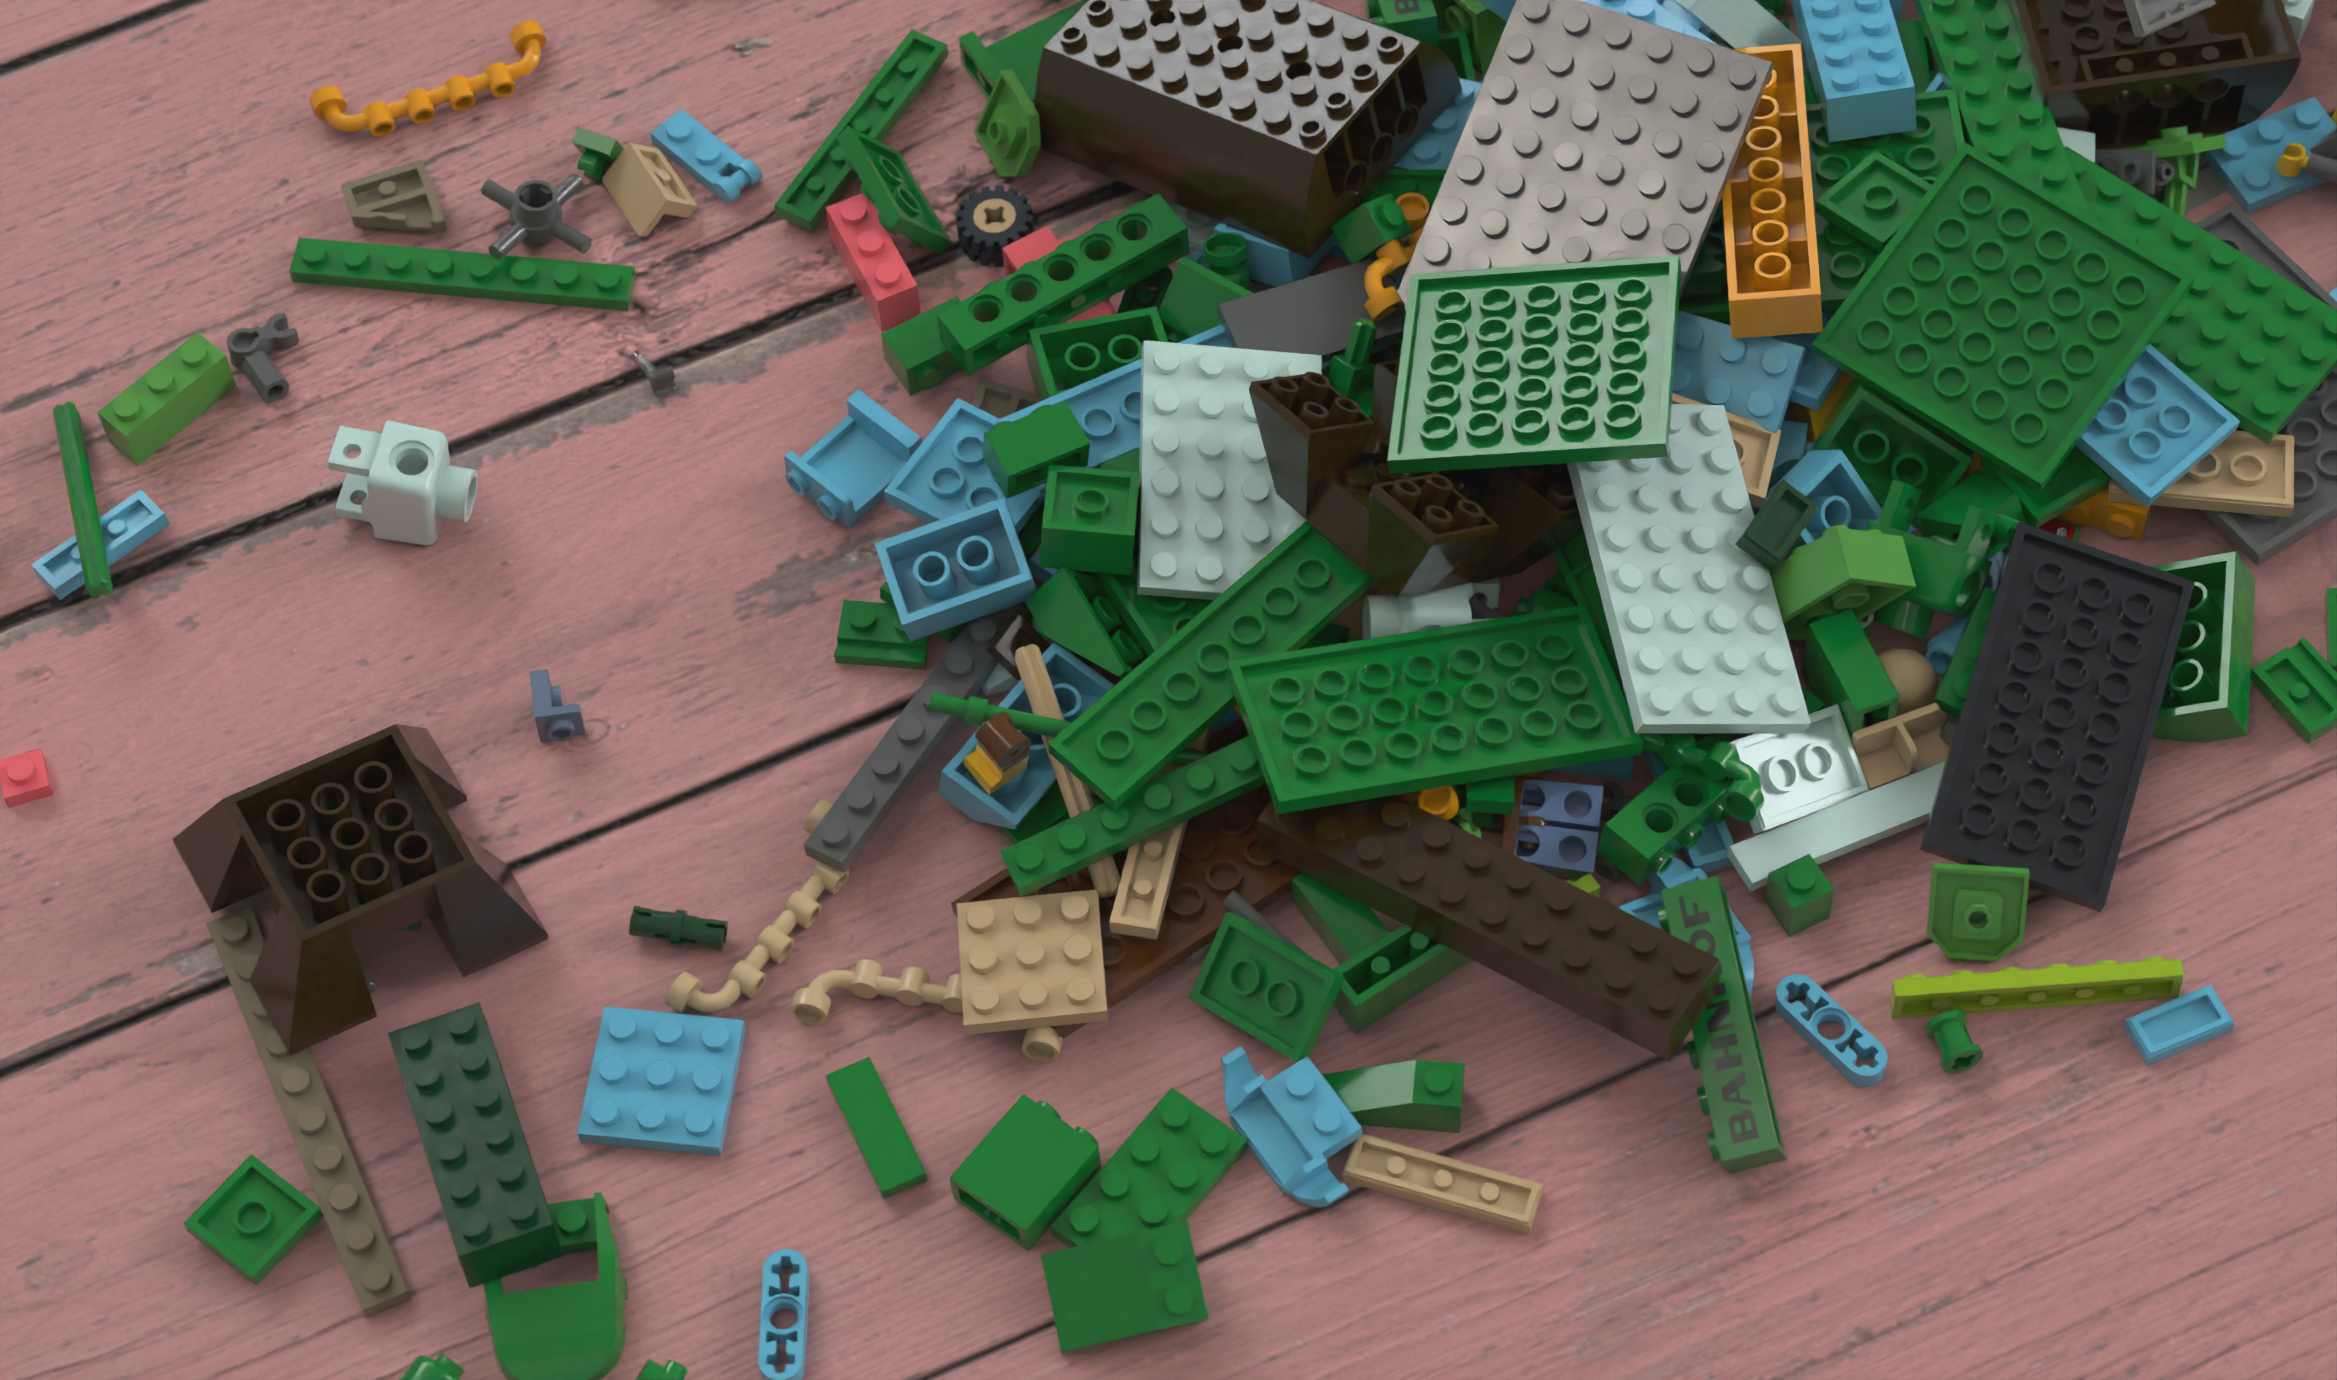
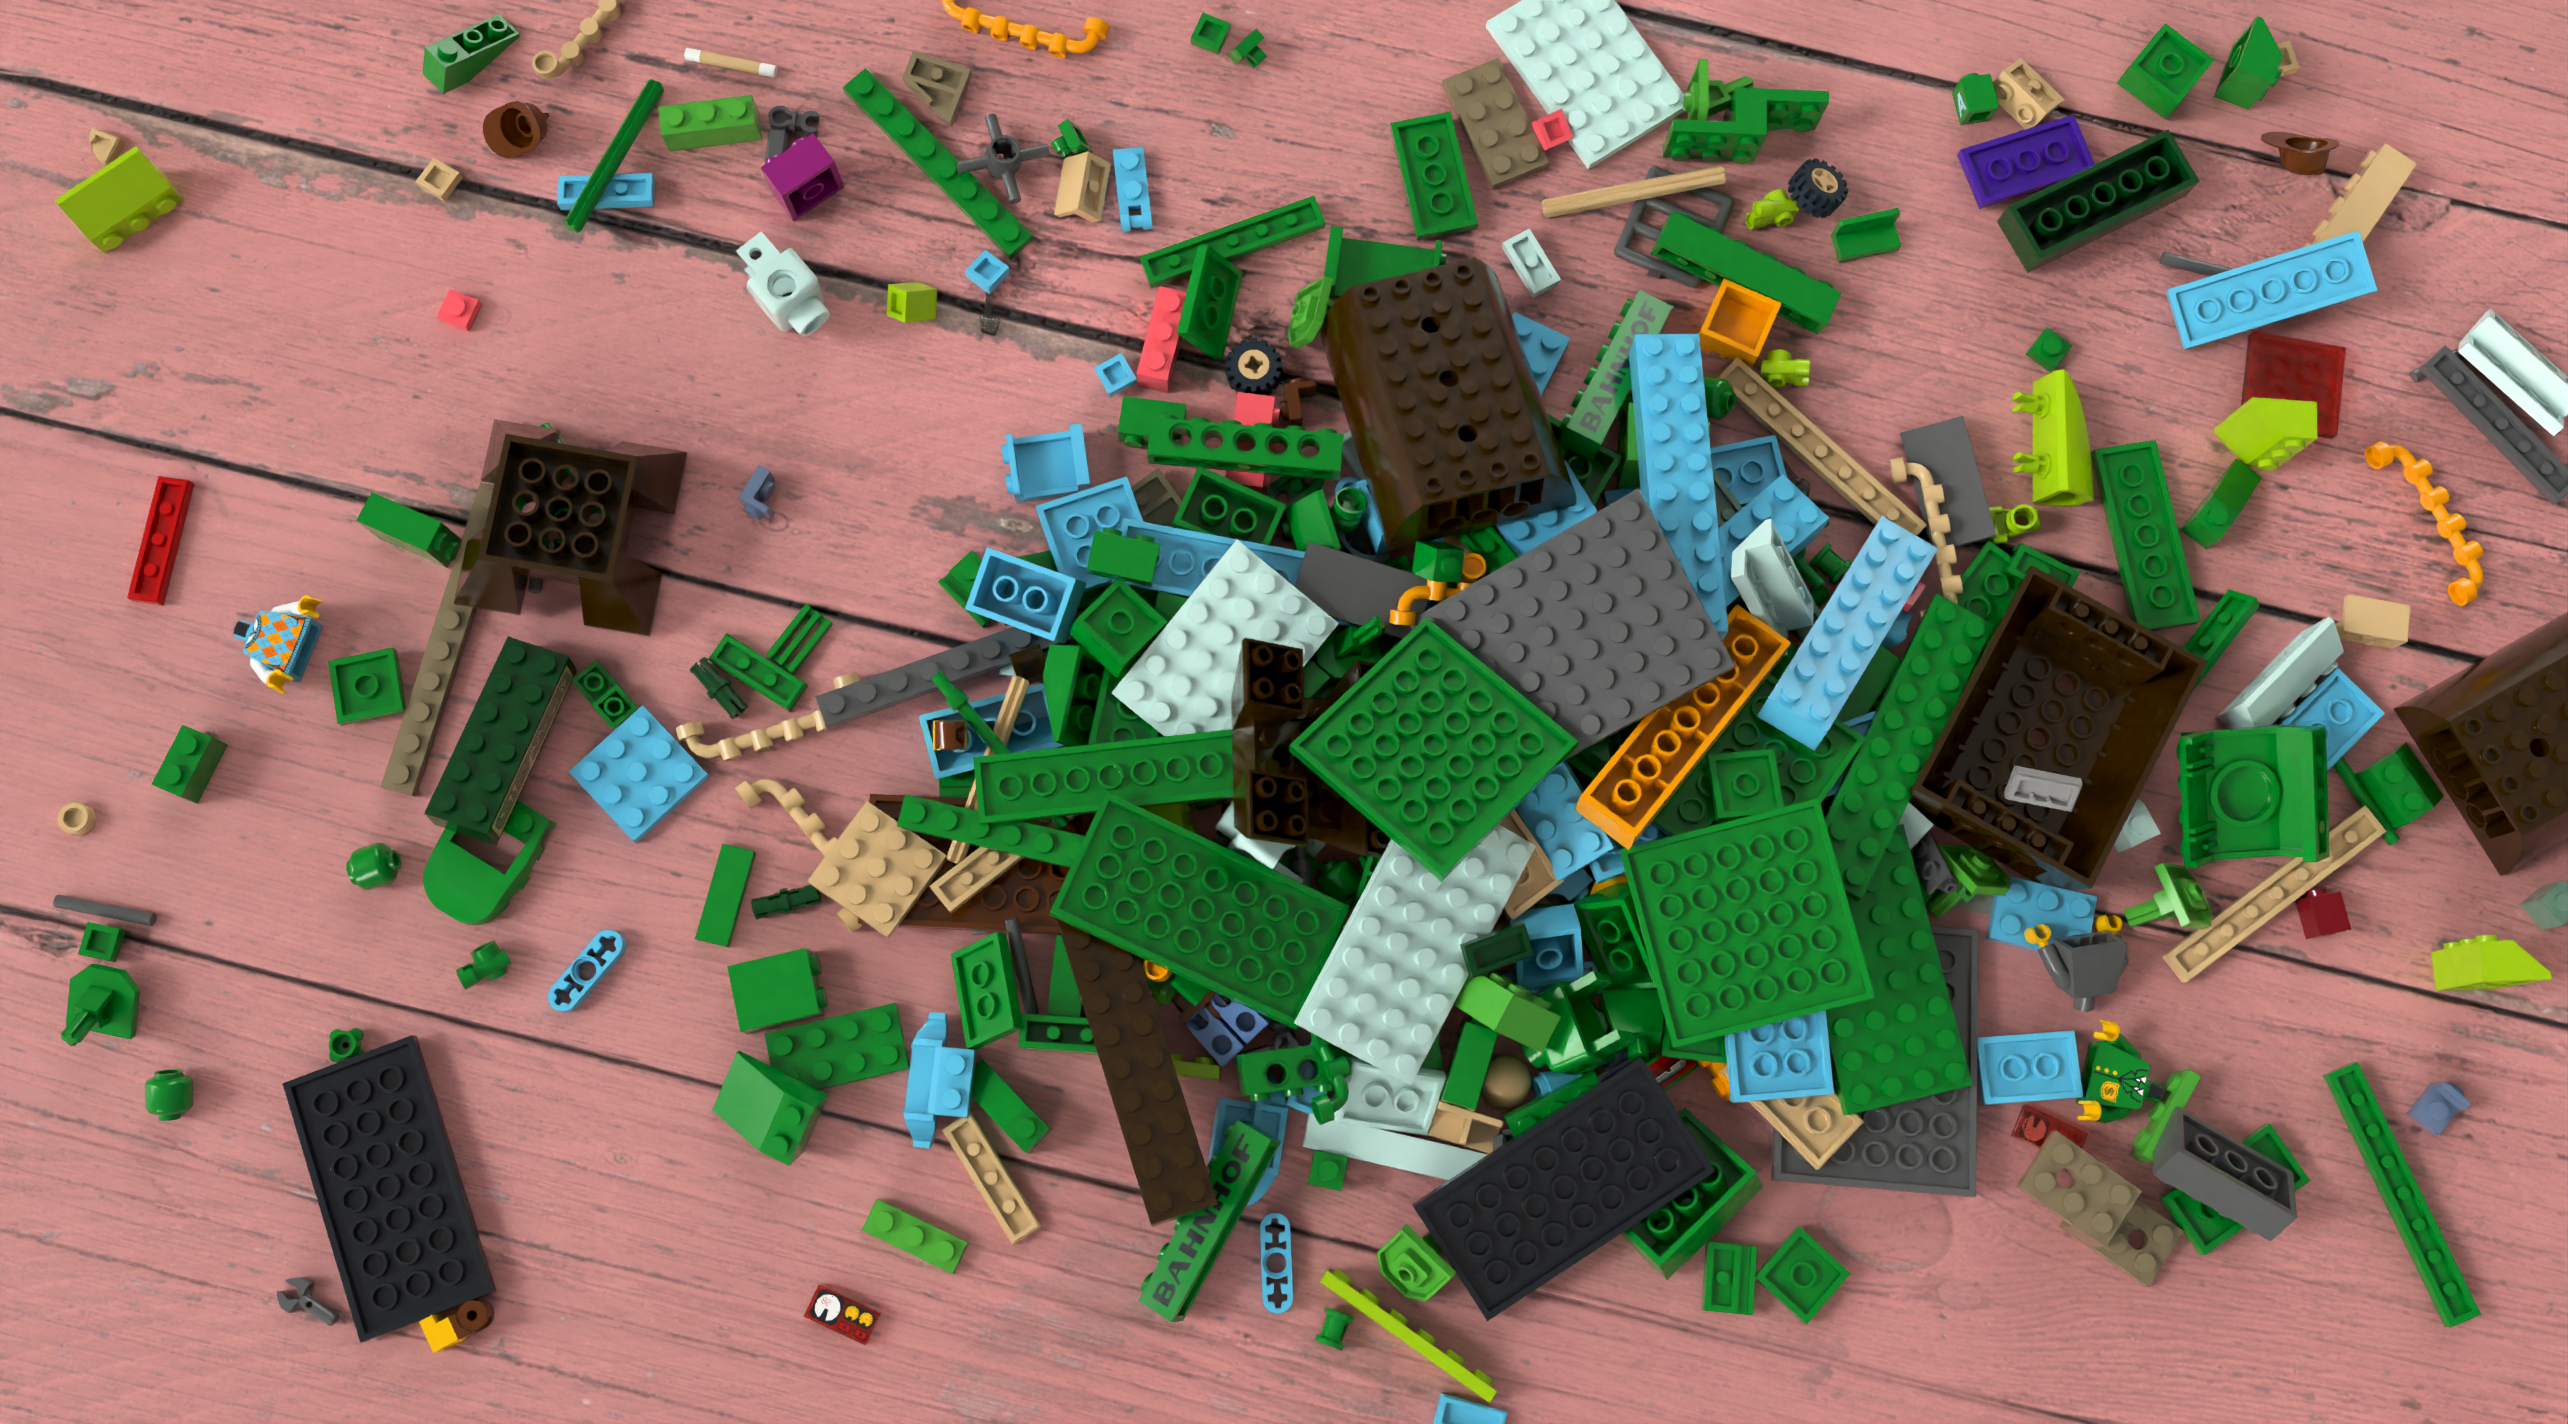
camera: 30 degrees right, 20 degrees up
(105, 1240) = (281, 641): none -> torso
(134, 335) = (731, 62): none -> tan bar
(171, 1014) = (409, 530): none -> green brick
(325, 371) = (802, 176): none -> magenta brick
(548, 1032) = (604, 694): none -> green slope
(556, 414) = (911, 302): none -> lime panel
(616, 331) = (987, 272): none -> medium azure plate
(710, 884) = (758, 672): none -> green tile
(726, 788) = (791, 630): none -> green tile
(850, 331) = (1115, 375): none -> medium azure plate
(952, 1080) = (785, 901): none -> dark green pin
(1065, 214) = (1293, 391): none -> reddish brown bracket
(1412, 1303) = (915, 1236): none -> bright green plate

